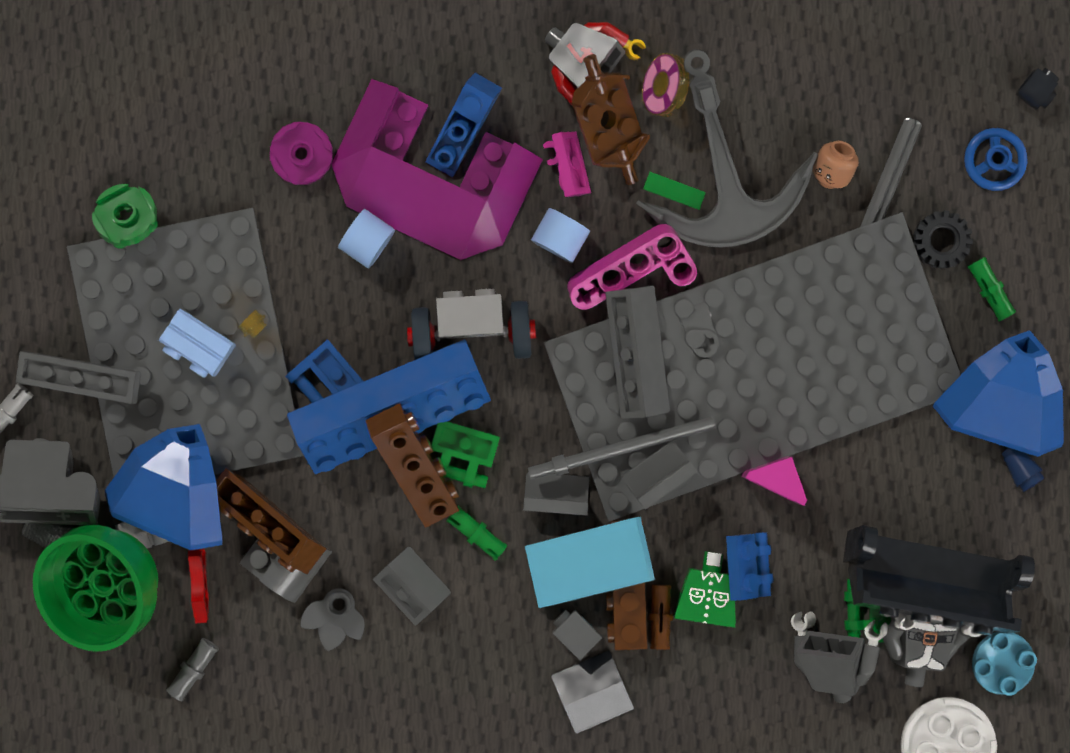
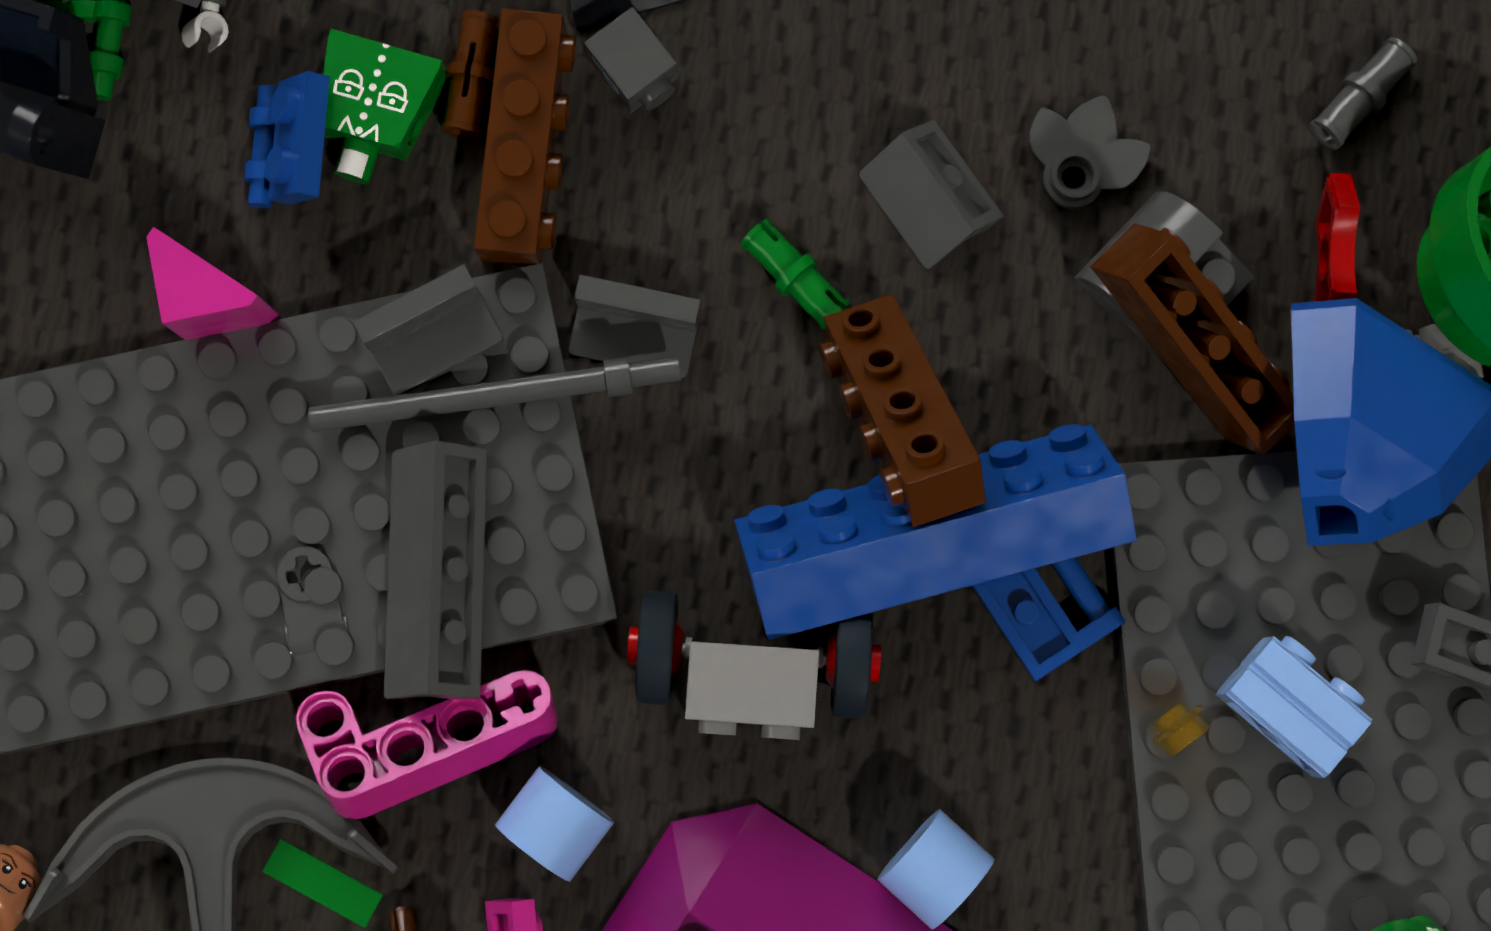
camera: 175 degrees left, 5 degrees down
(467, 445) = (791, 442): green plate -> none
(590, 562) = (584, 182): medium azure tile -> none

